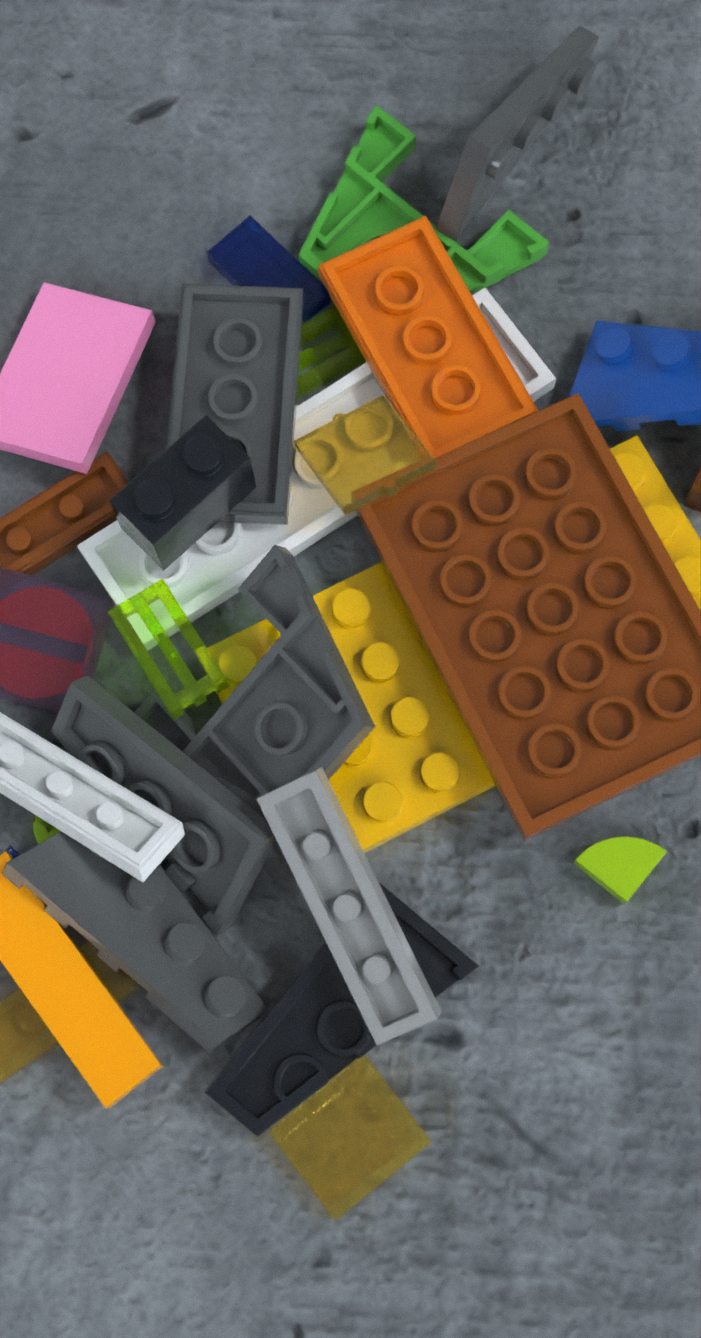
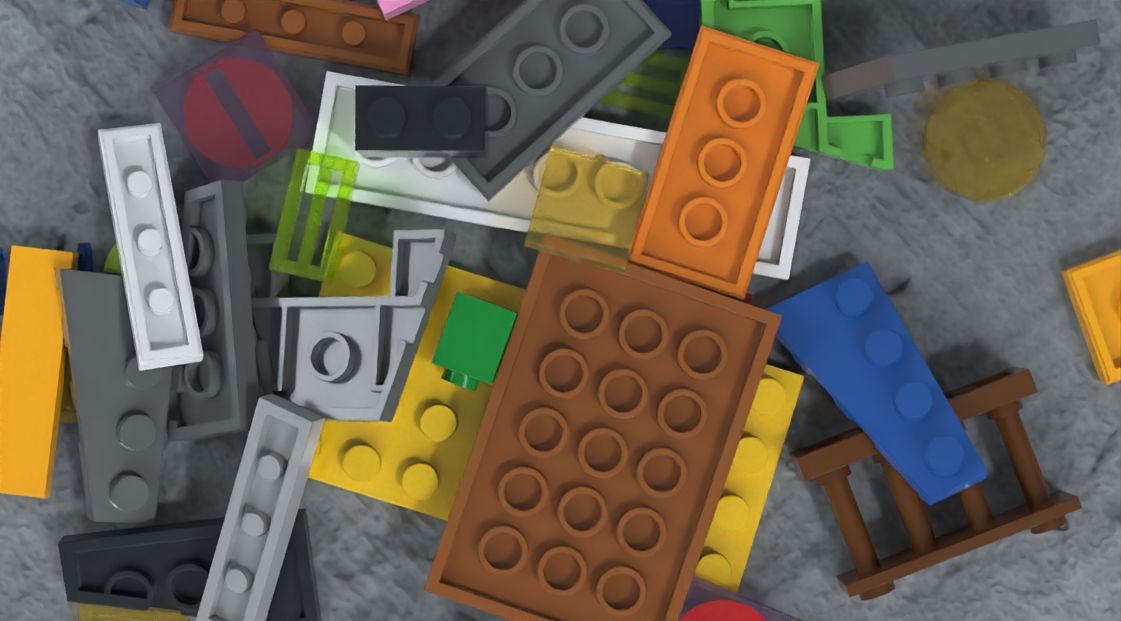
camera: 40 degrees right, 15 degrees up
(376, 618) = (473, 341): none -> green brick
(590, 176) = (984, 141): none -> clear yellow tile

